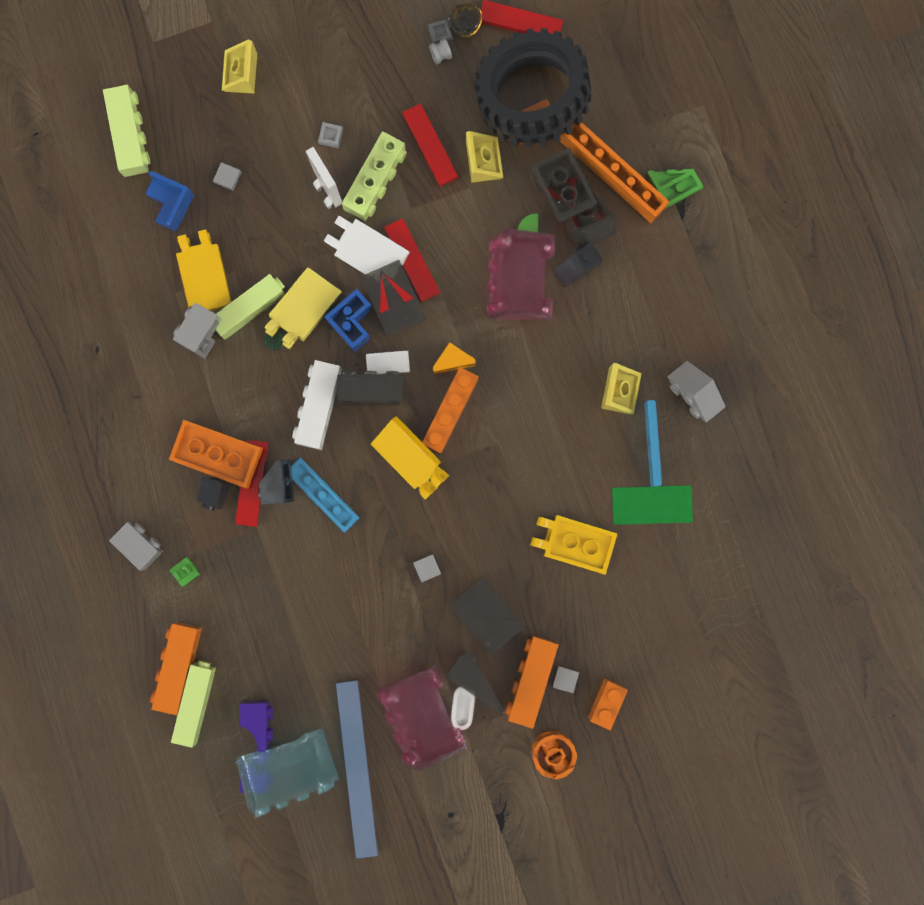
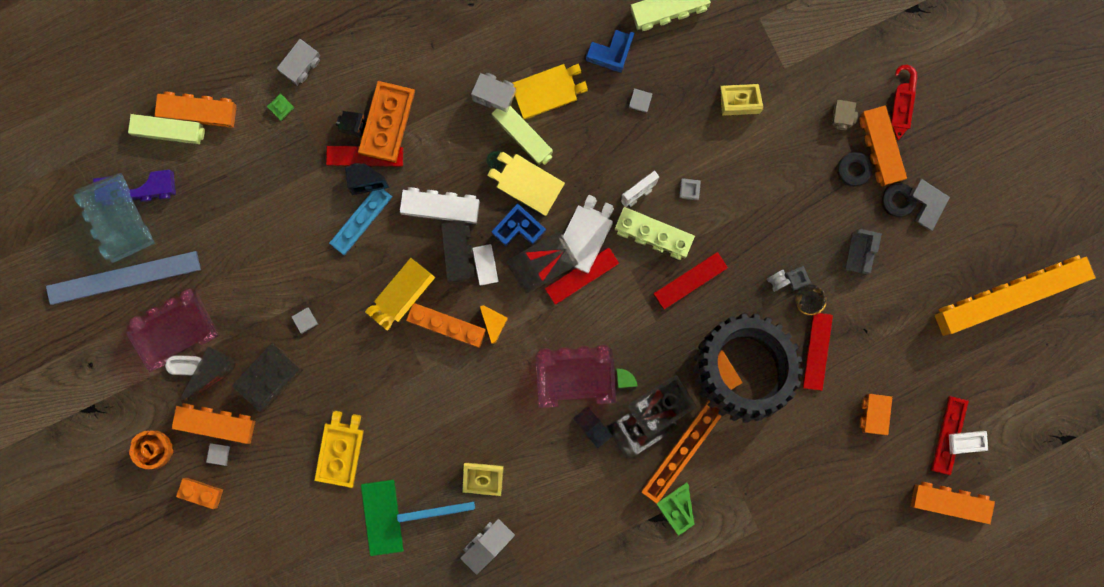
camera: 85 degrees right, 0 degrees up
(483, 157) = (683, 331): light yellow slope -> none

